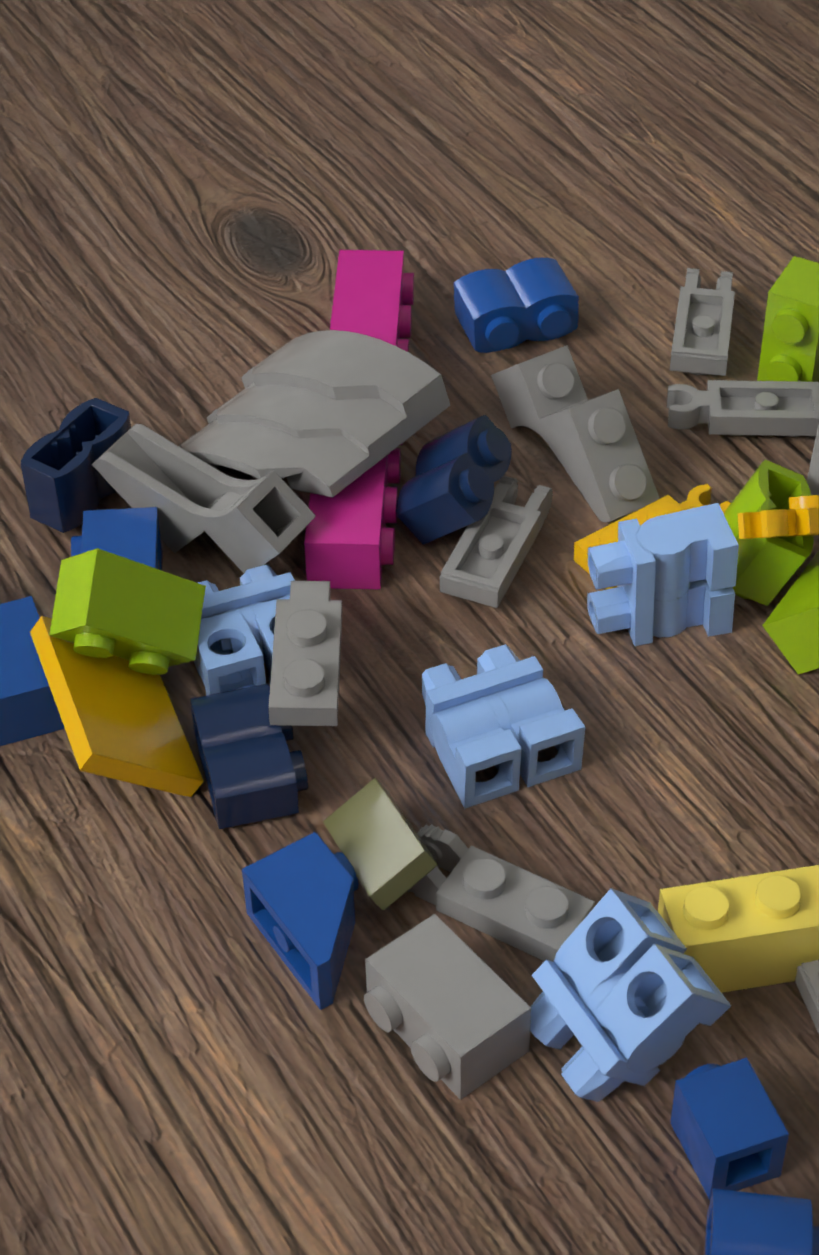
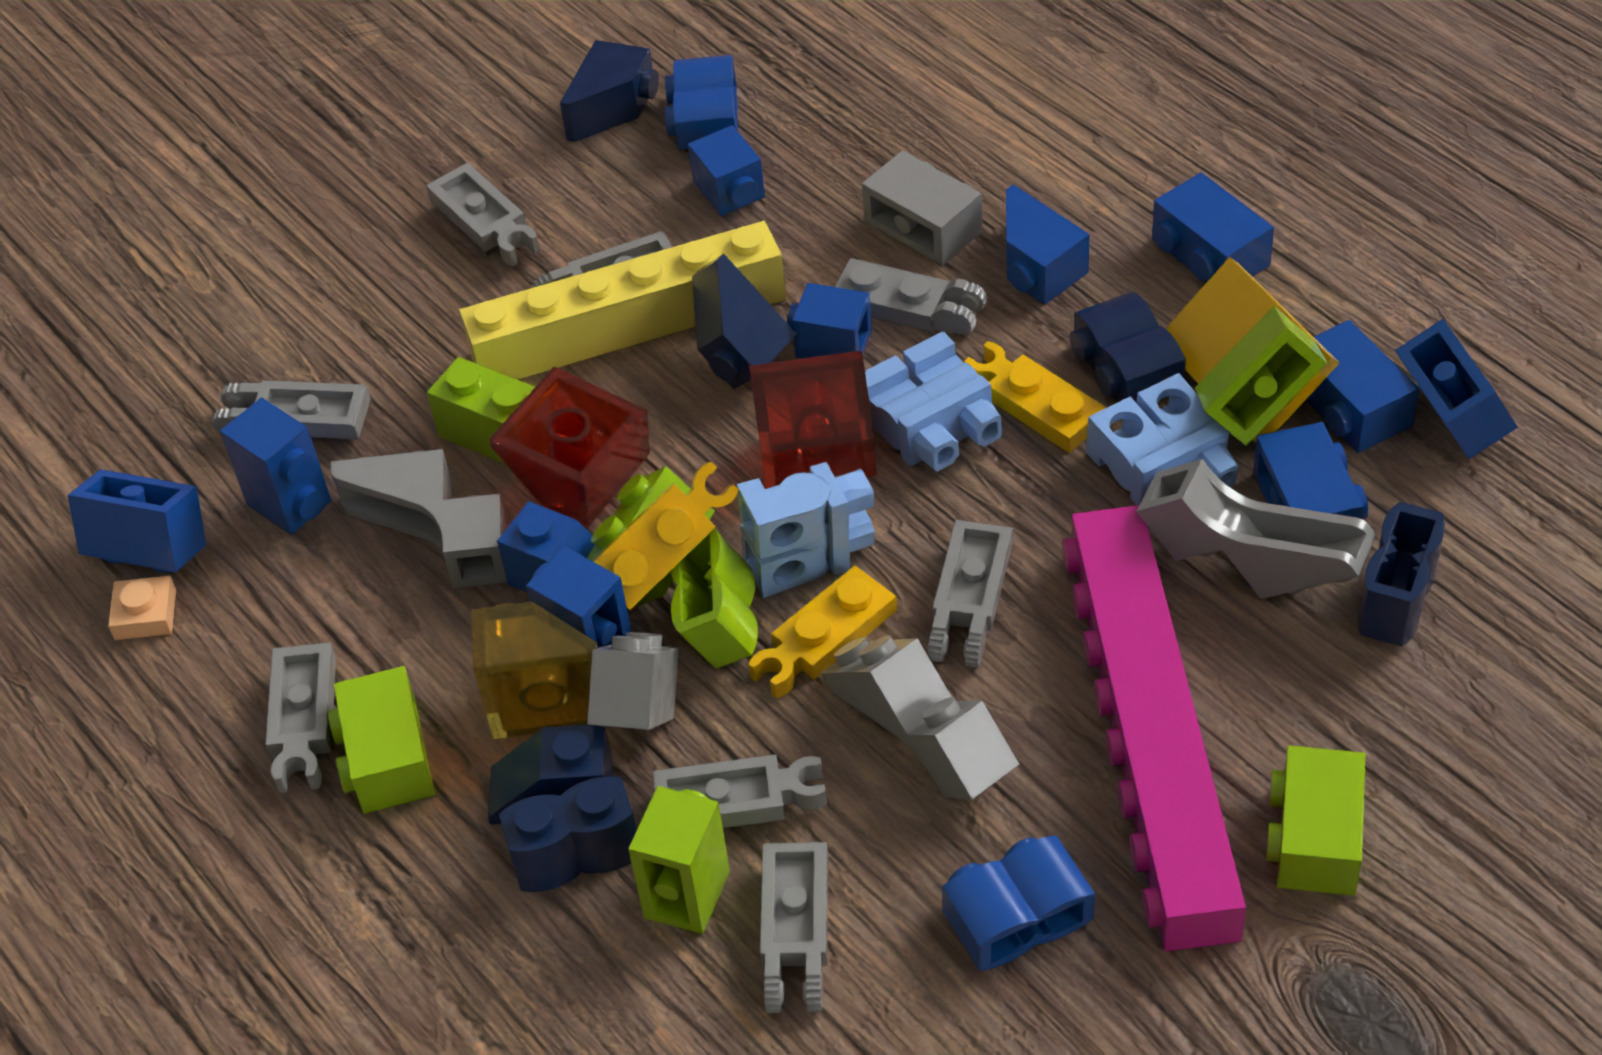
camera: 175 degrees right, 5 degrees up
(77, 893) = (1207, 226): none -> blue brick
(246, 321) = (1320, 820): none -> lime brick
(306, 657) = (1097, 385): light grey hinge -> none
(322, 411) = (1206, 634): light grey slope -> none
(378, 746) = (1037, 397): none -> yellow plate
(380, 844) = (998, 291): olive tile -> none
(454, 480) = (1022, 618): dark blue brick -> none
(601, 844) = (830, 321): none -> blue brick
(622, 995) = (797, 197): light blue hips -> none
(644, 701) = (813, 415): none -> clear red slope
(720, 825) = (735, 322): none -> dark blue slope

